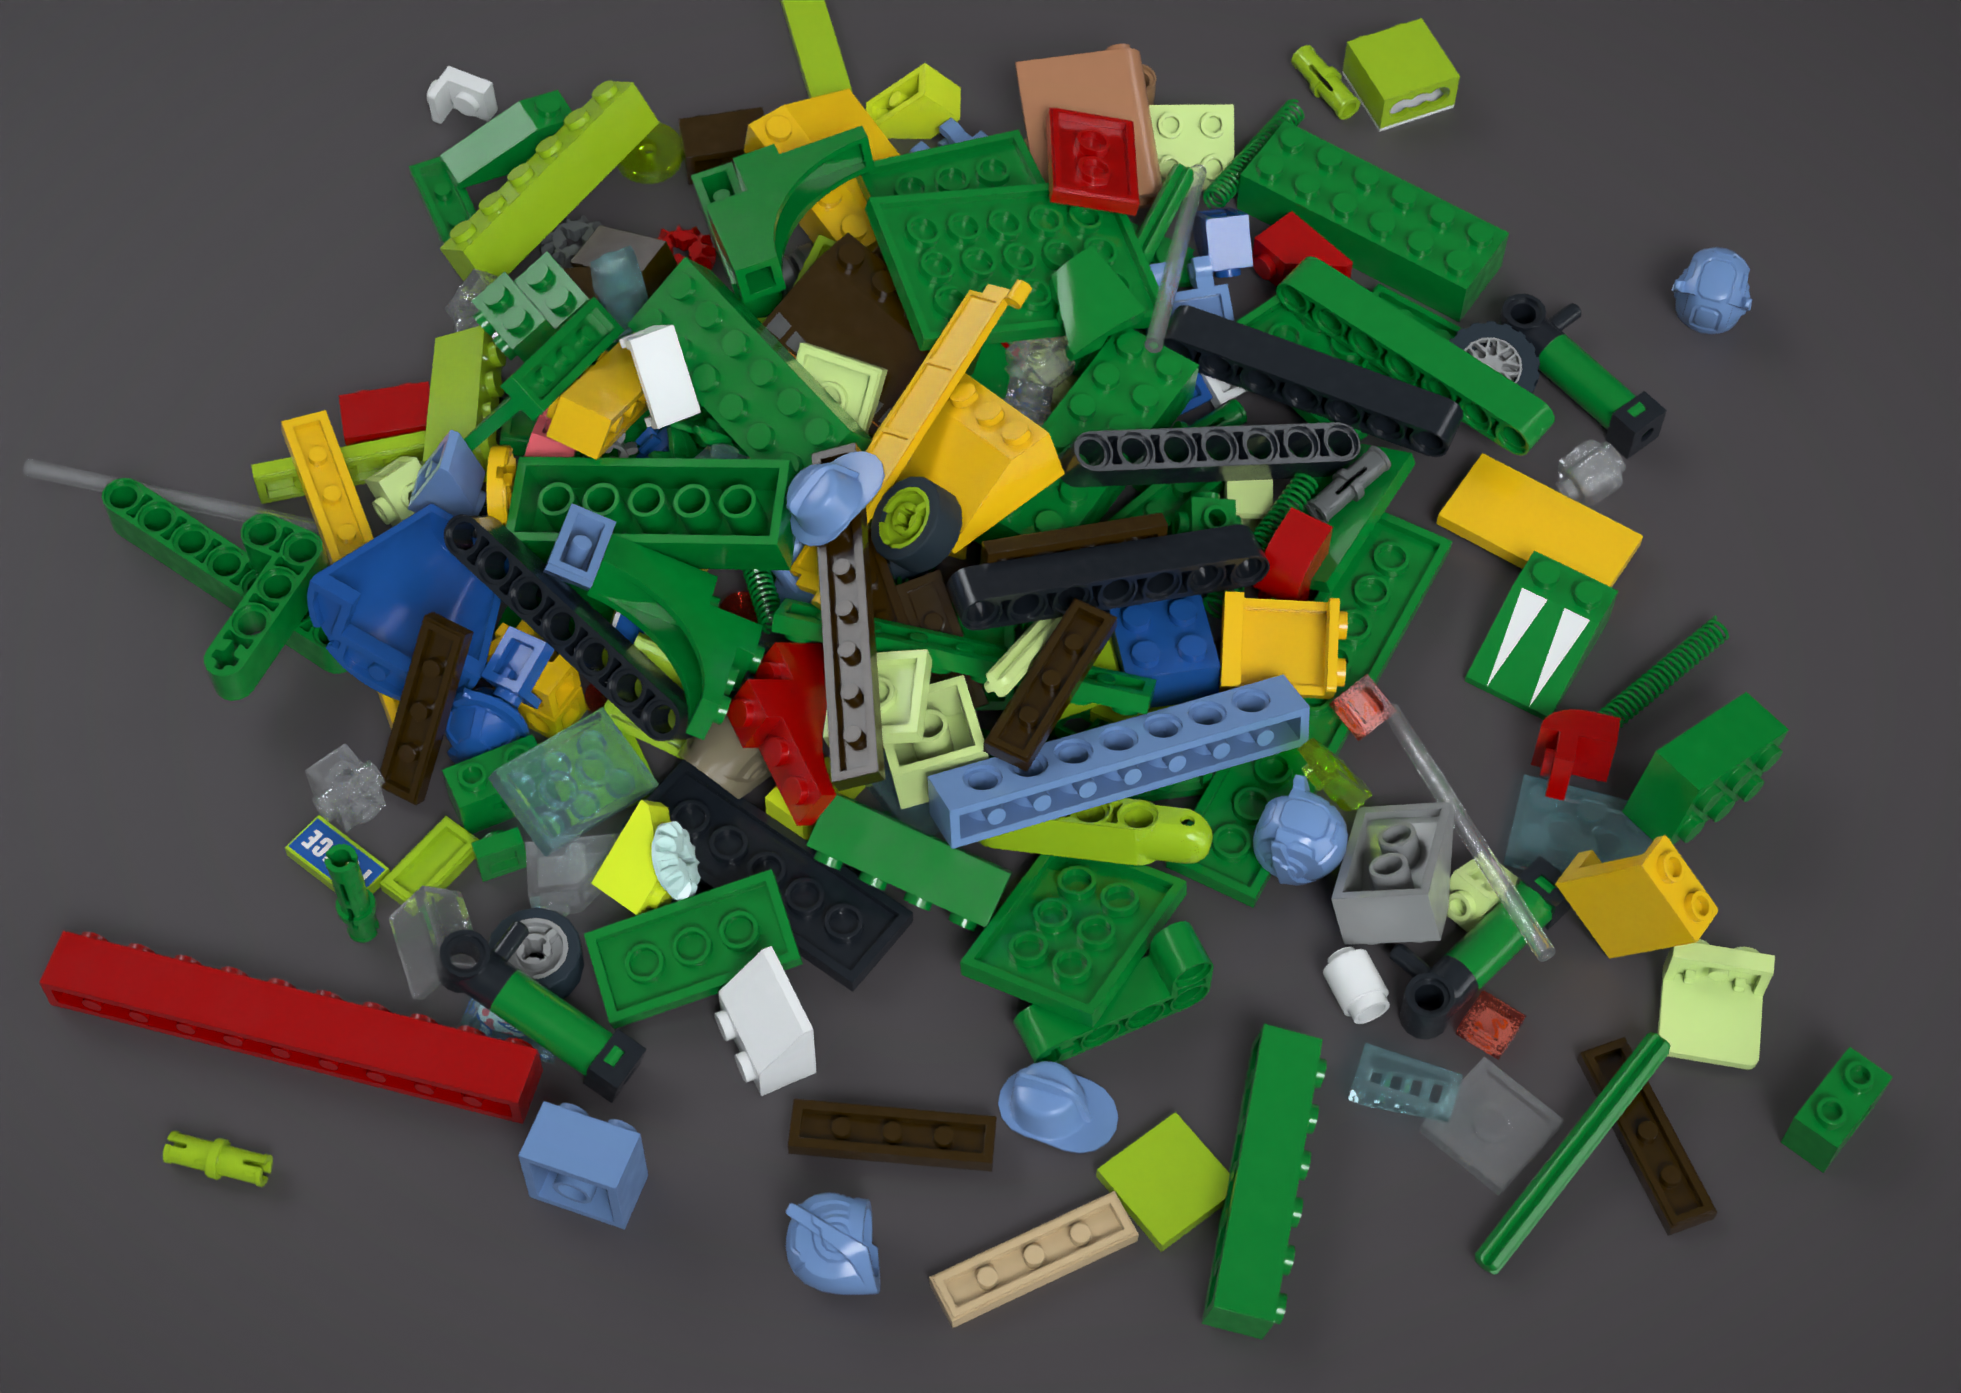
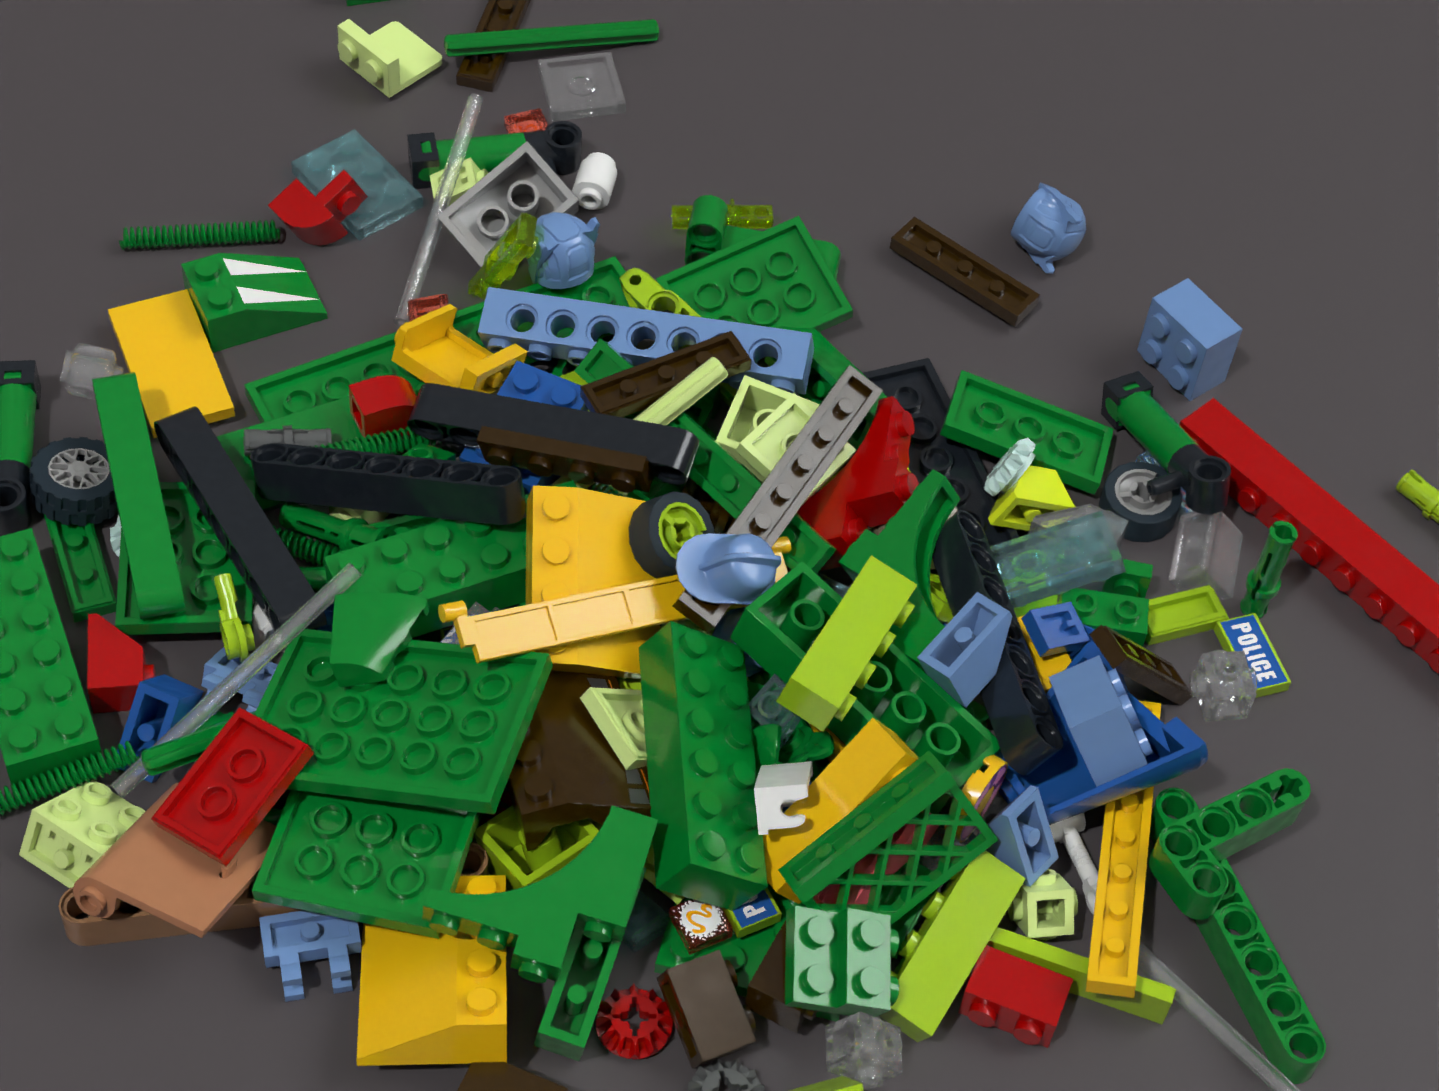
camera: 150 degrees left, 5 degrees down
(422, 575) = (1101, 720): none -> medium blue brick
(619, 285) = (744, 944): clear light blue slope -> none
(678, 481) = (847, 643): none -> lime brick
(766, 1025) = (1011, 348): white slope -> none
(916, 105) = (301, 1030): neon yellow slope -> none
(1033, 1259) = (922, 174): tan tile -> none
(1058, 1108) = (850, 232): medium blue piece -> none
(1167, 1181) = (805, 165): lime tile -> none
(1200, 1011) = (735, 213): none -> clear neon green piece
(1231, 308) = (236, 637): none -> lime plate
(1264, 1182) = (750, 123): green brick -> none
(1394, 1064) = (629, 142): clear light blue slope -> none
(1638, 900) = (408, 119): yellow panel -> none
(1706, 771) = (258, 132): green brick -> none

